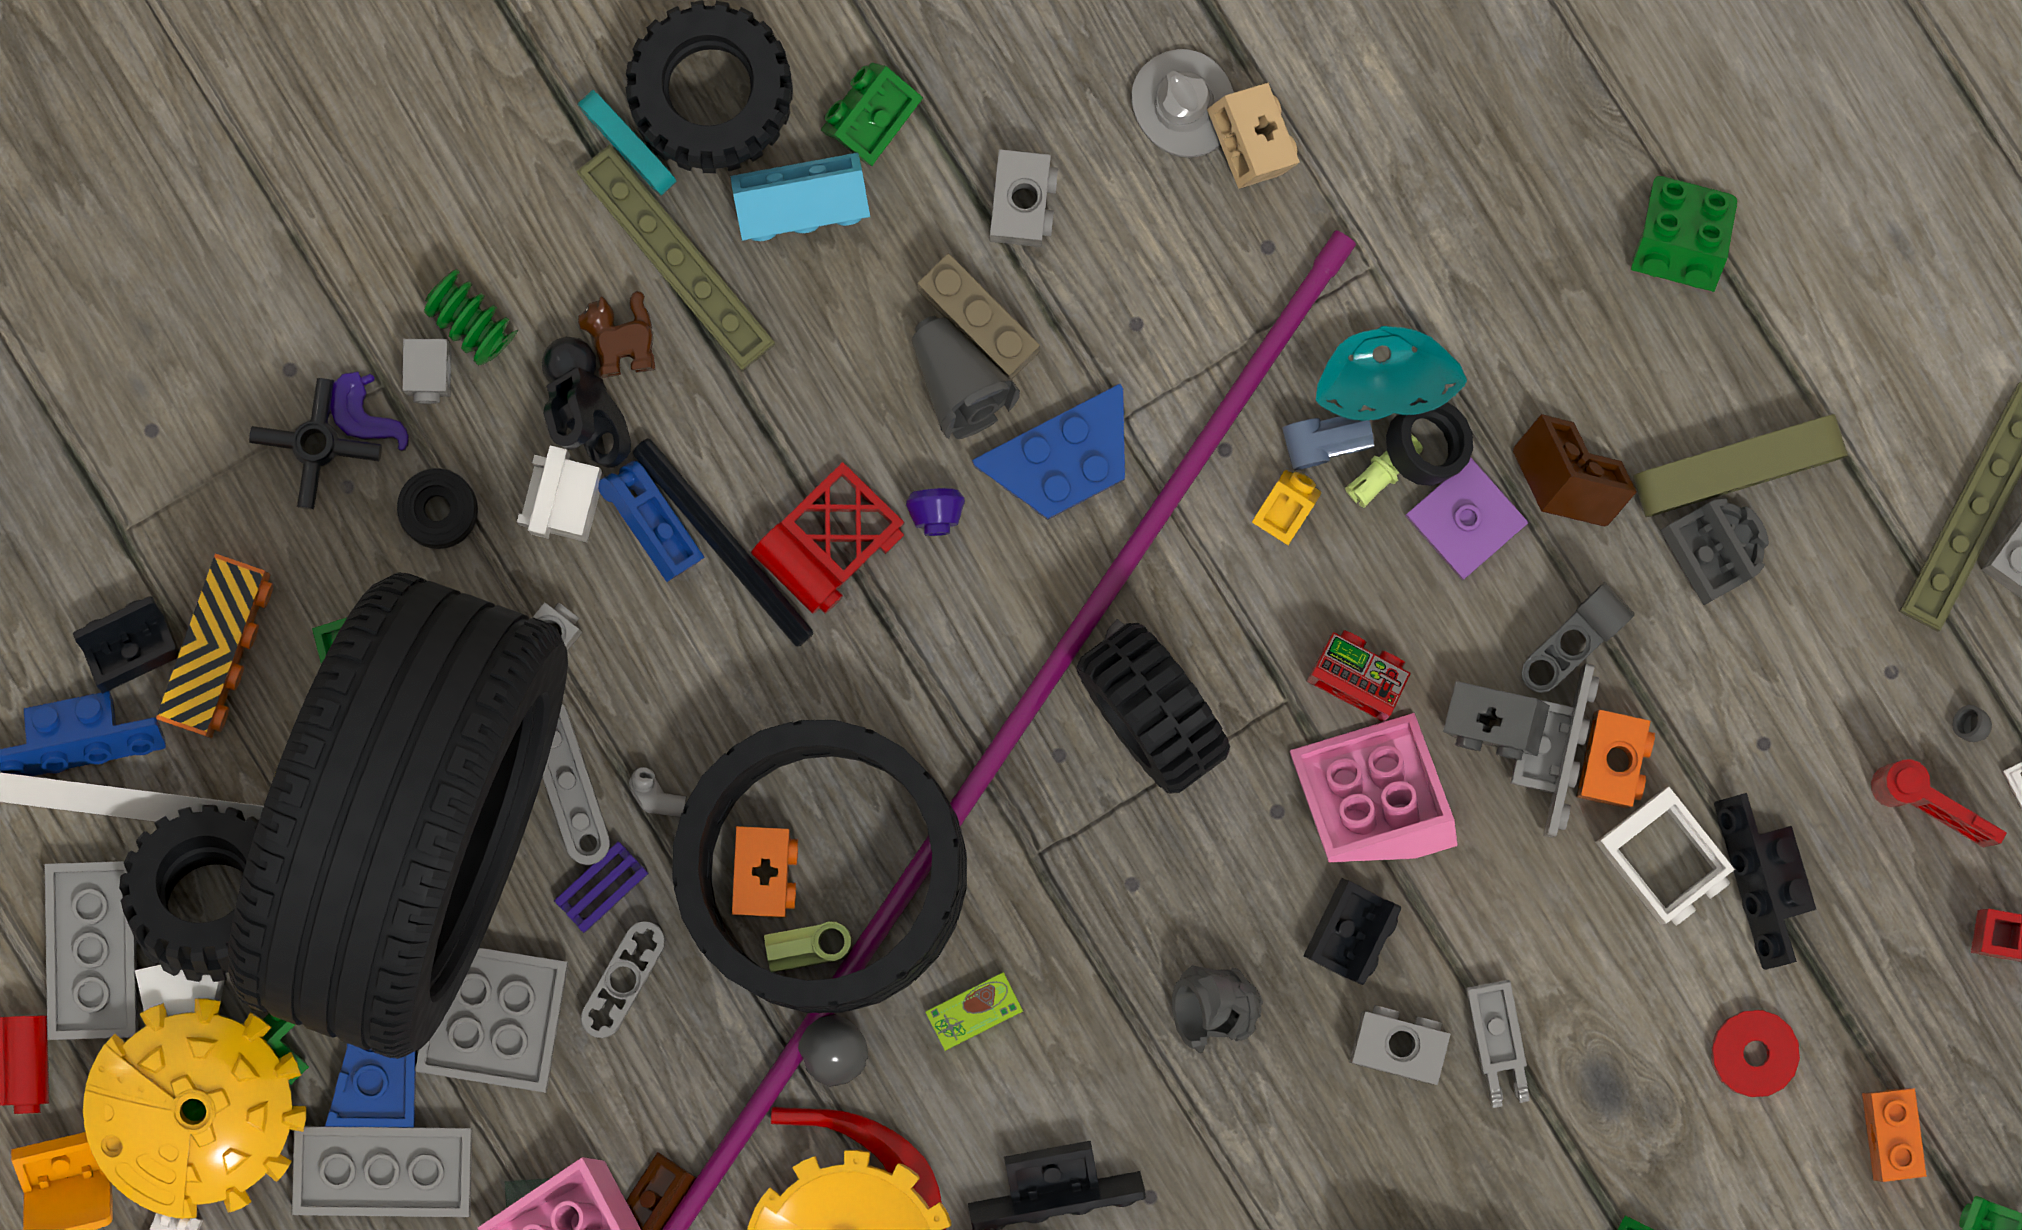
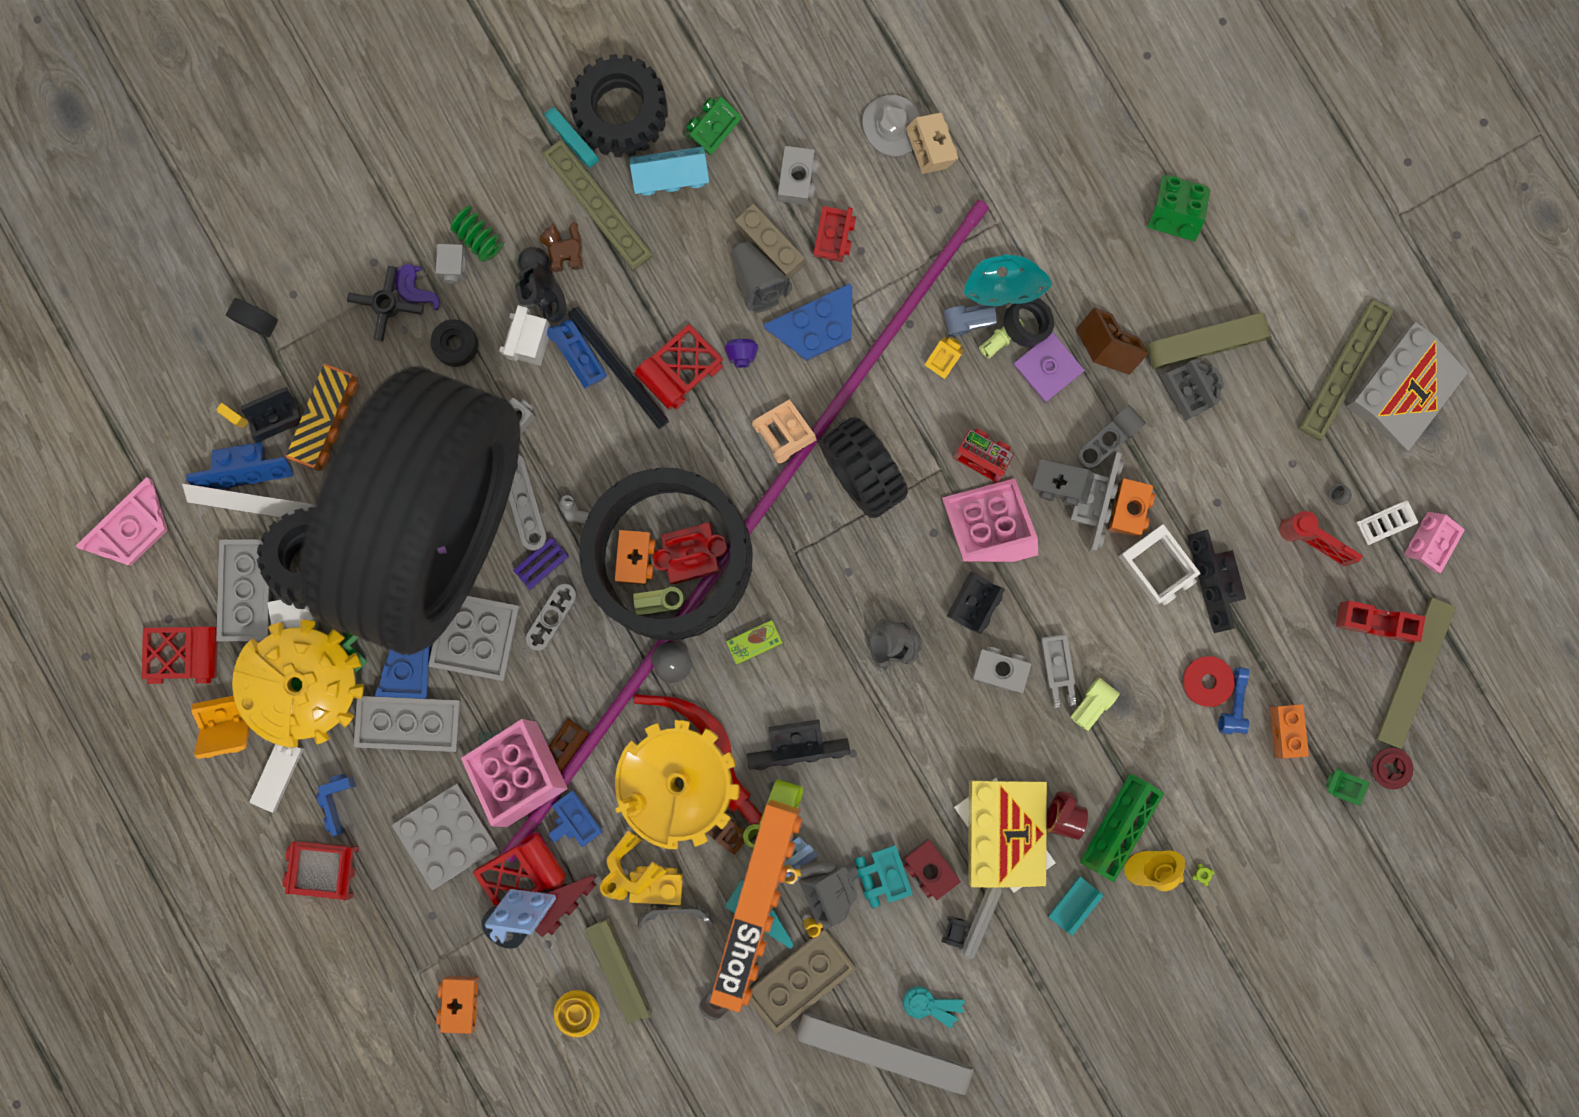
camera: 10 degrees right, 0 degrees up
(57, 647) = (232, 415): none -> yellow tile
(86, 477) = (251, 317): none -> black tyre
(860, 862) = (690, 553): none -> red piece
(1025, 636) = (791, 426): none -> light nougat plate
(1088, 298) = (833, 234): none -> red bracket
(1567, 1089) = (1098, 698): none -> yellowish green piece
(1802, 1122) = (1235, 722): none -> blue brick

